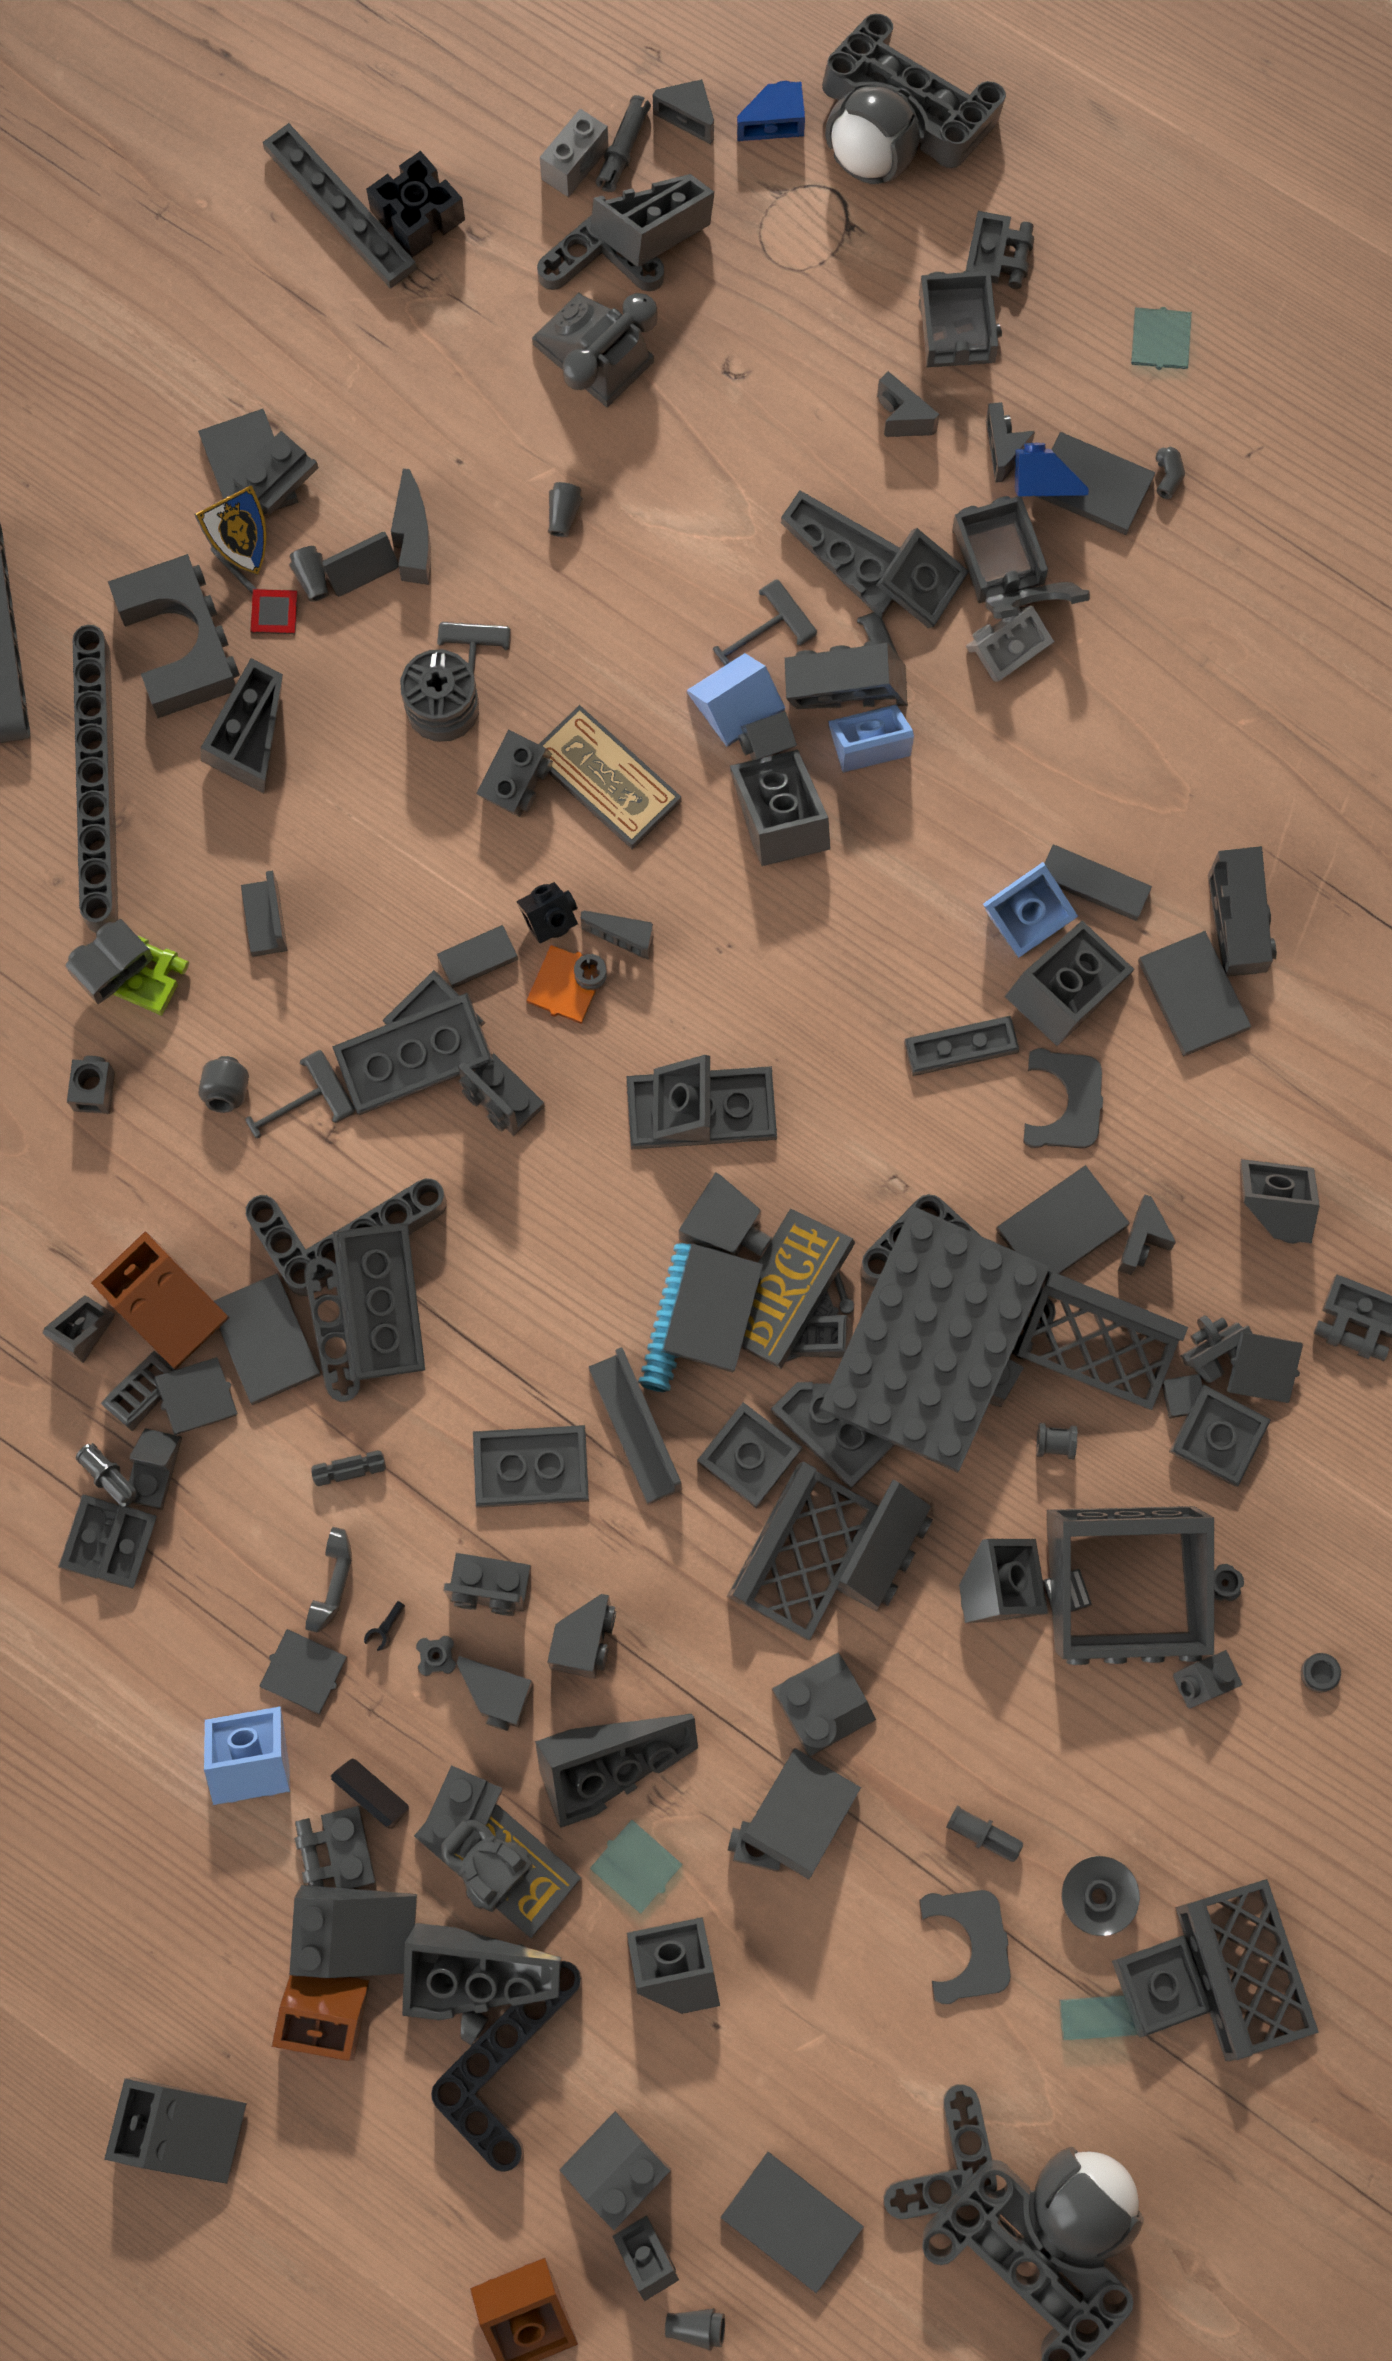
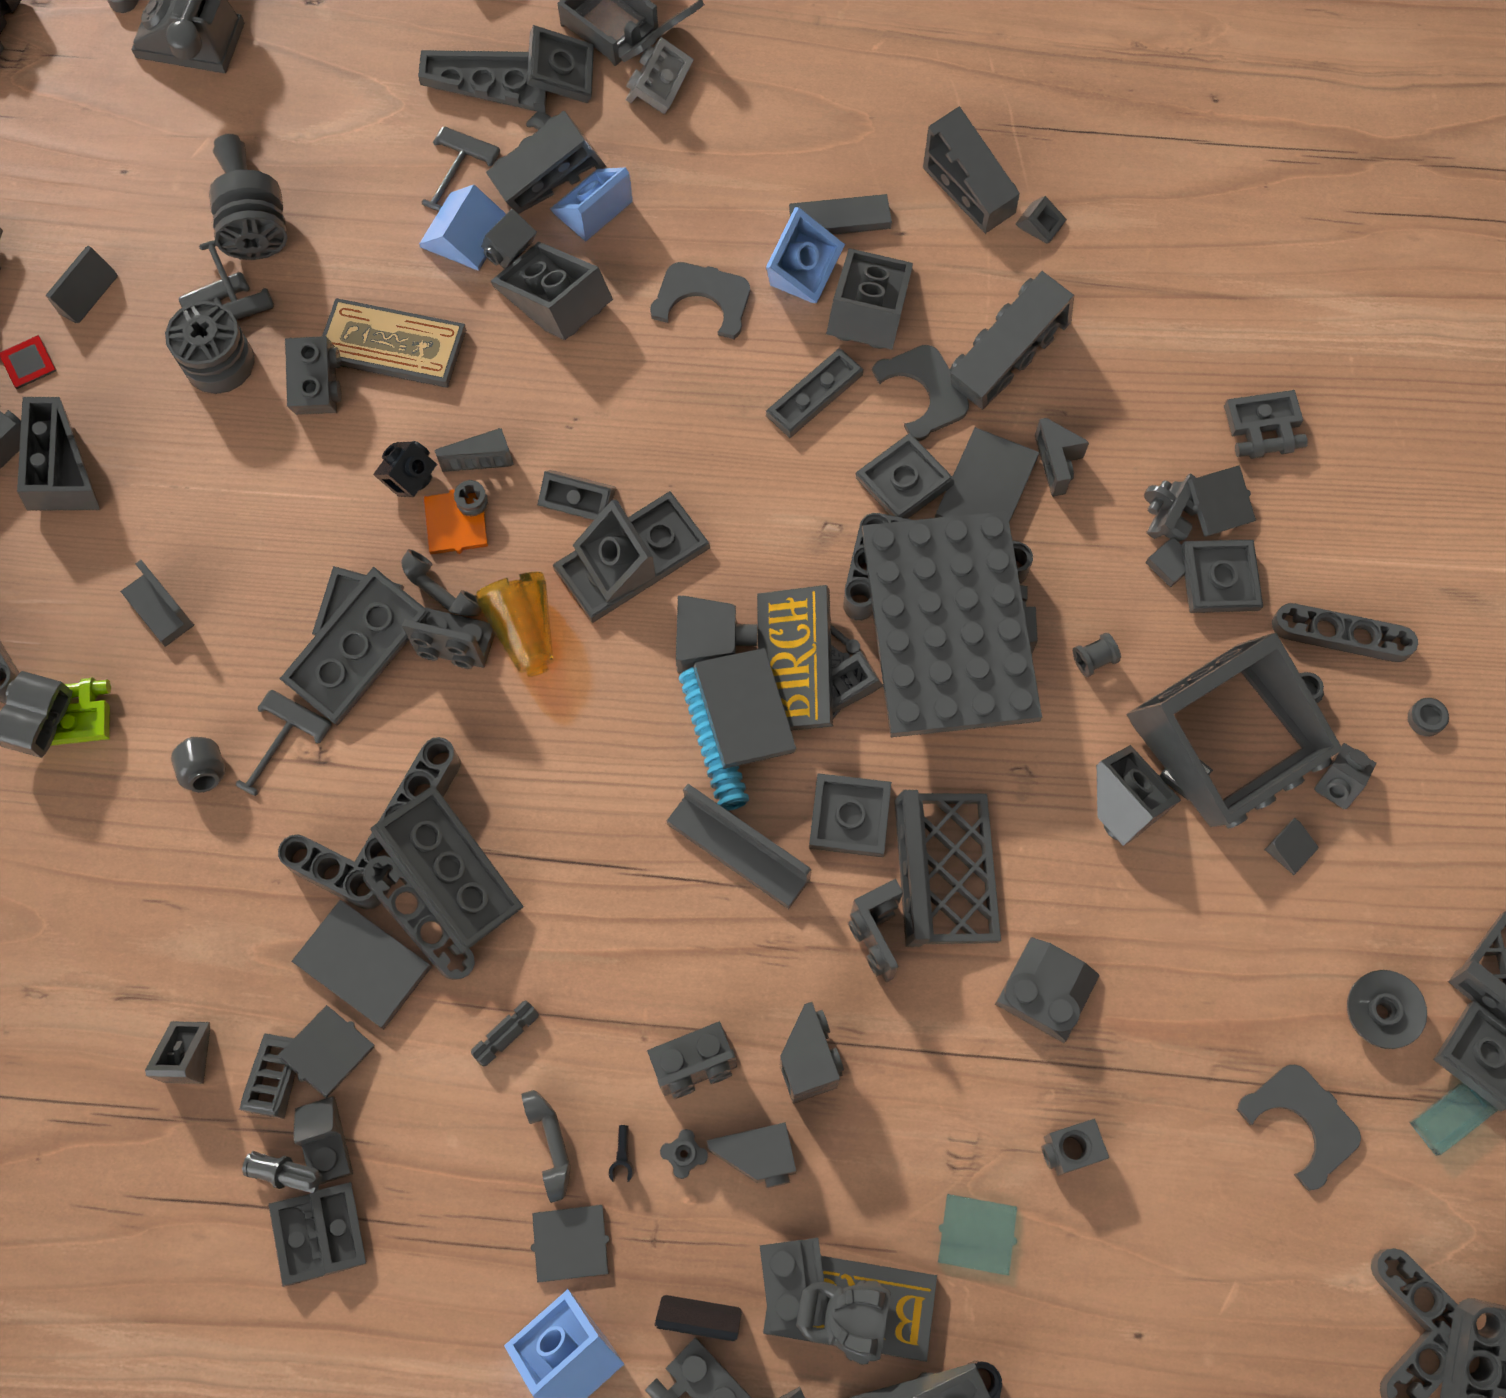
camera: 30 degrees left, 5 degrees down
(94, 1100) = (84, 843): dark grey brick -> none
(160, 1300) = (243, 982): dark orange slope -> none
(309, 571) = (38, 311): dark grey cone -> none
(411, 532) = (112, 238): dark grey slope -> none
(477, 956) = (365, 538): dark grey tile -> none
(492, 665) = (245, 306): none -> dark grey piece
(504, 1010) = (417, 566): none -> dark grey bar
(530, 1466) = (667, 936): dark grey tile -> none
(543, 581) = (247, 214): none -> dark grey wheel
(566, 1116) = (520, 620): none -> clear yellow cone
(599, 1762) = (886, 1161): dark grey wedge -> none
(674, 1966) = (1072, 1303): dark grey slope -> none
(686, 1020) = (574, 494): none -> dark grey slope
(720, 1549) = (865, 915): none -> dark grey bracket
(801, 1813) = (1096, 1095): dark grey tile -> none
(839, 1445) = (916, 759): dark grey plate -> none
(885, 1547) = (1016, 822): dark grey slope -> none
(914, 867) = (689, 280): none -> dark grey piece
(985, 1834) = (1255, 1017): dark grey axle -> none
(990, 1177) = (905, 478): none -> dark grey tile
(1114, 1310) = (1082, 520): dark grey fence -> none
(1117, 1712) = (1292, 846): none -> dark grey slope
(1169, 1103) = (1012, 339): none -> dark grey wedge
(1194, 993) = (972, 255): dark grey tile -> none
(1281, 1198) = (1149, 365): dark grey slope -> none
(1285, 994) = (1041, 220): none -> dark grey slope
(1301, 1548) = (1344, 636): none -> dark grey beam

